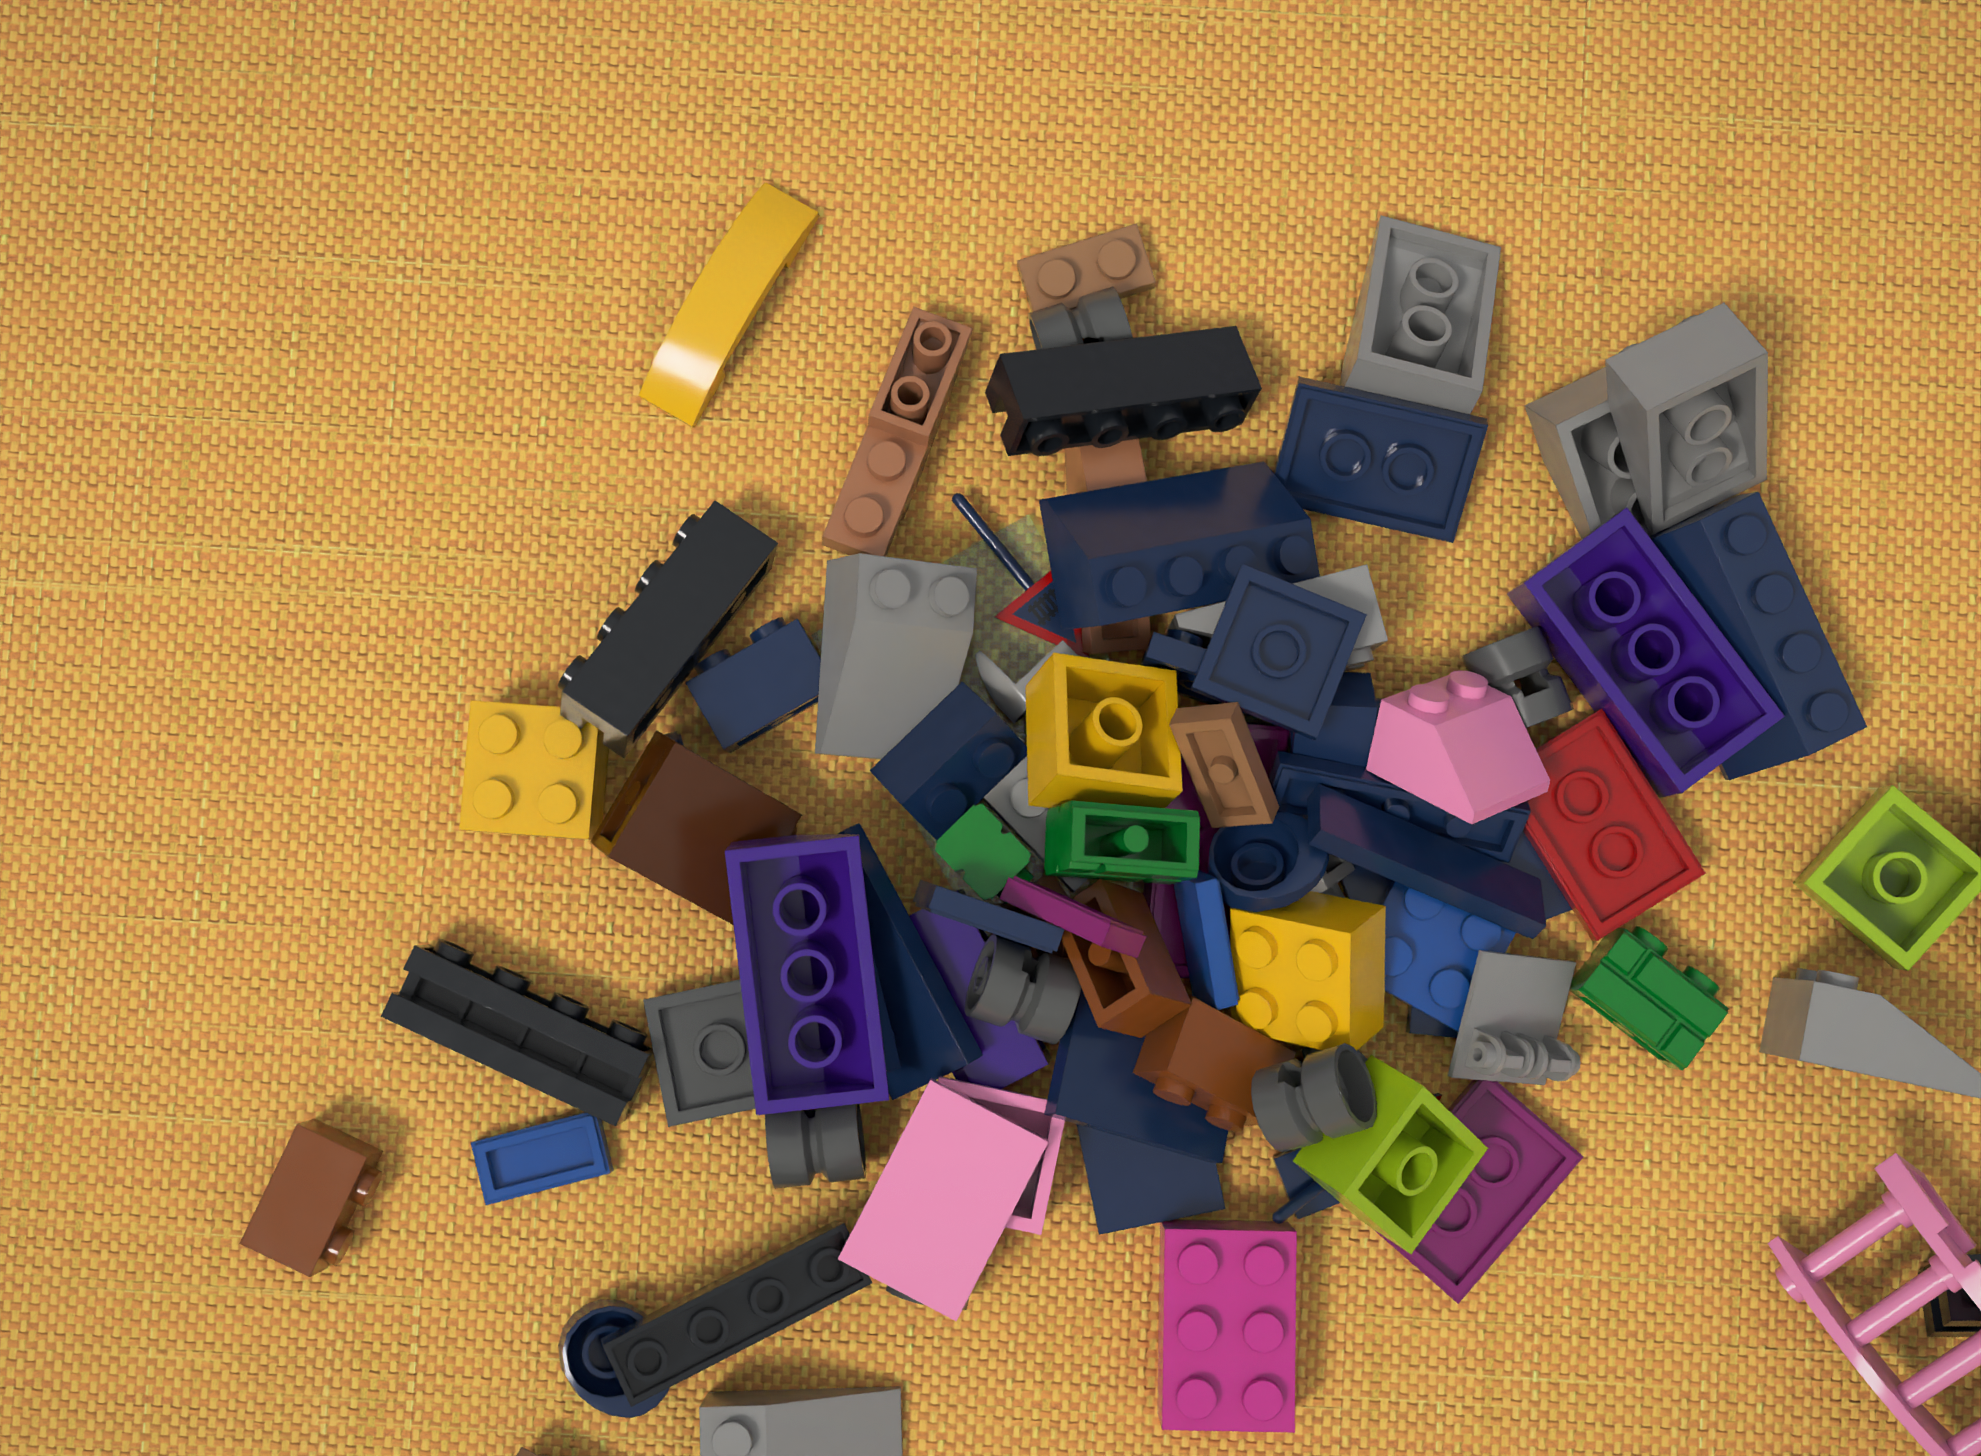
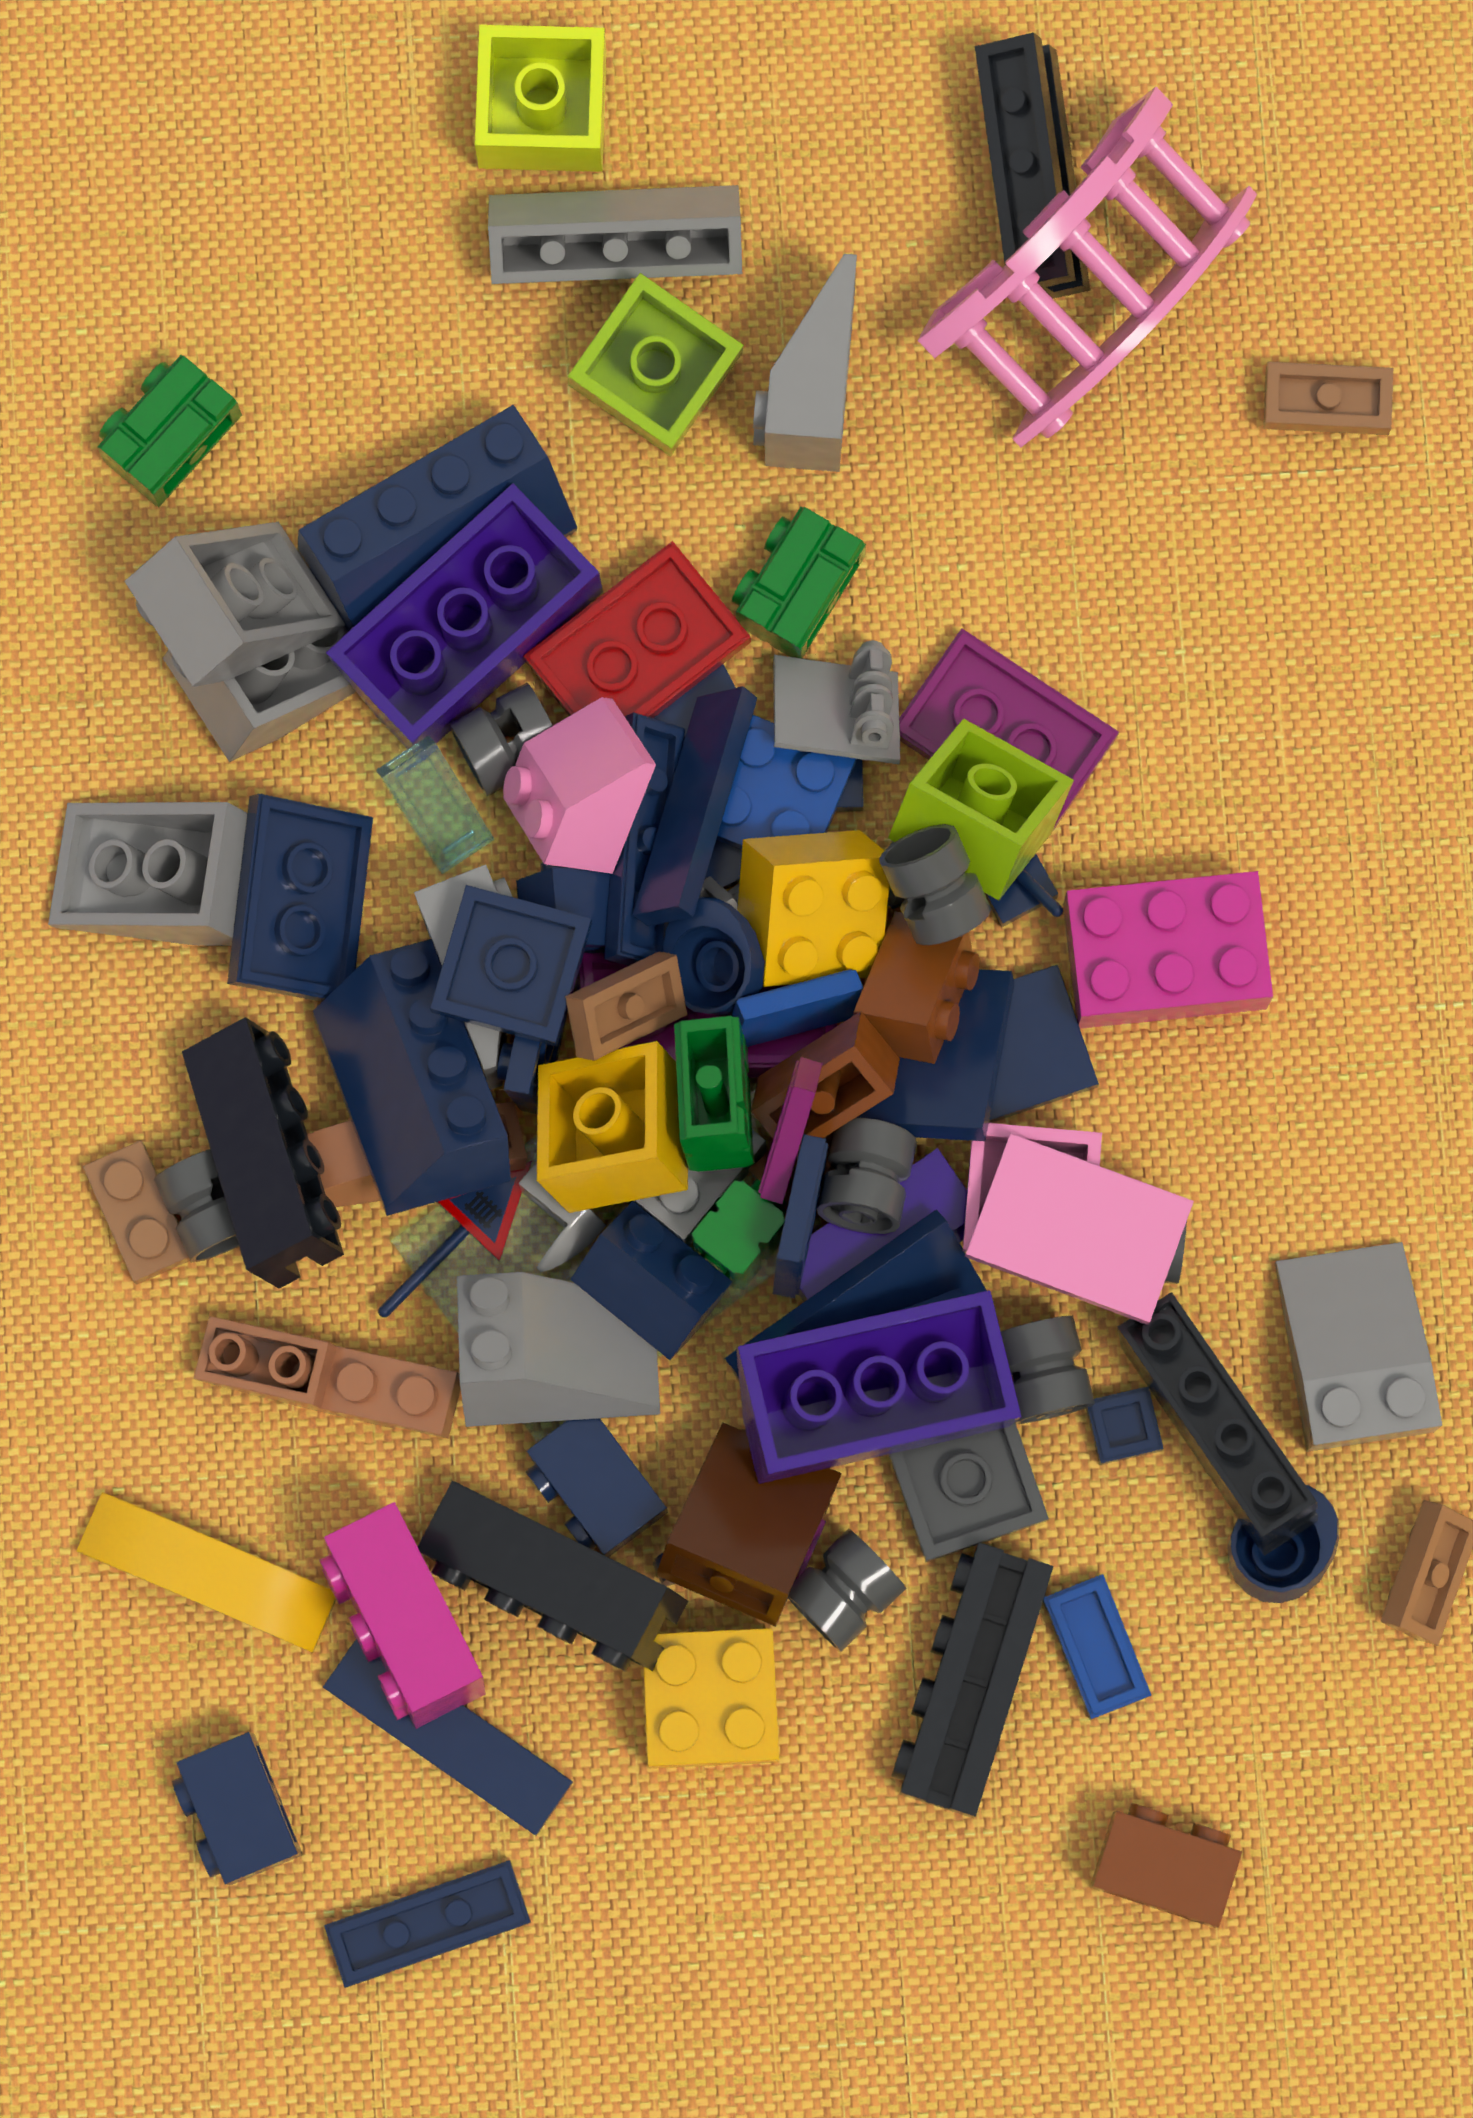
camera: 100 degrees left, 5 degrees down
(365, 477) = (427, 1924): none -> dark blue tile
(492, 305) = (237, 1810): none -> dark blue brick
(542, 516) = (459, 1746): none -> dark blue tile
(623, 916) = (845, 1590): none -> dark grey wheel
(646, 477) = (401, 1617): none -> dark pink brick
(754, 1214) = (1124, 1426): none -> dark blue tile
(1458, 602) = (435, 804): none -> clear light blue tile
(1873, 381) = (167, 429): none -> green brick

